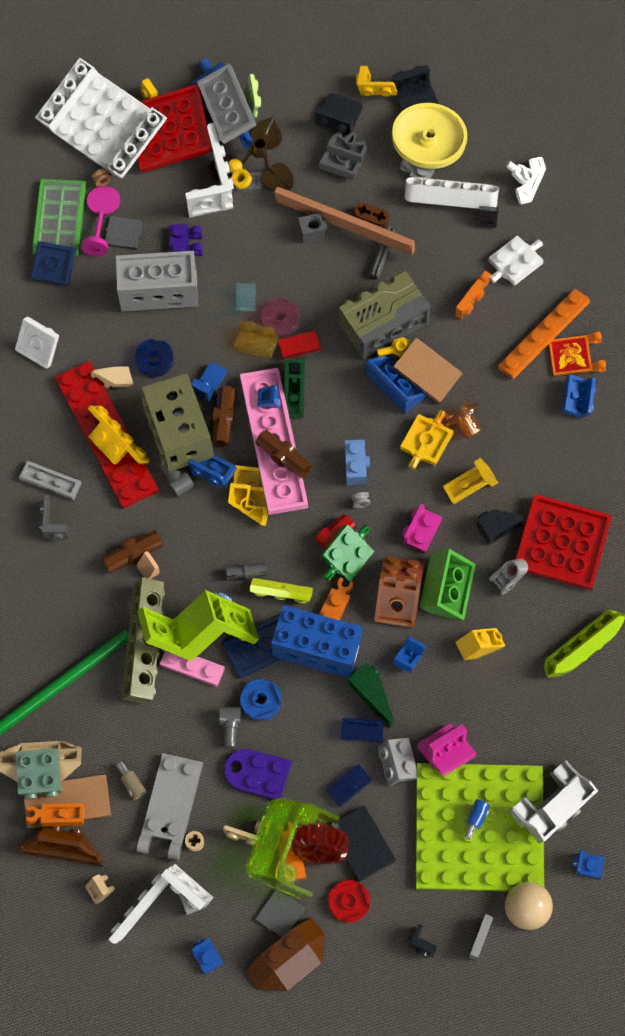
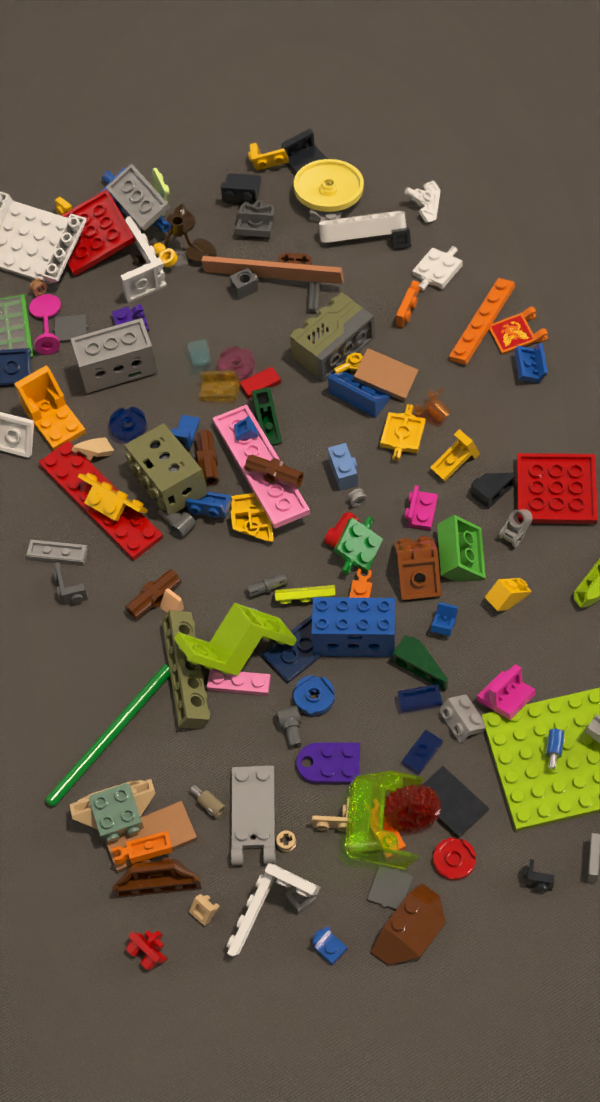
camera: 10 degrees left, 10 degrees down
(38, 910) = (139, 943): none -> red hips
(79, 323) = (47, 407): none -> light orange bracket

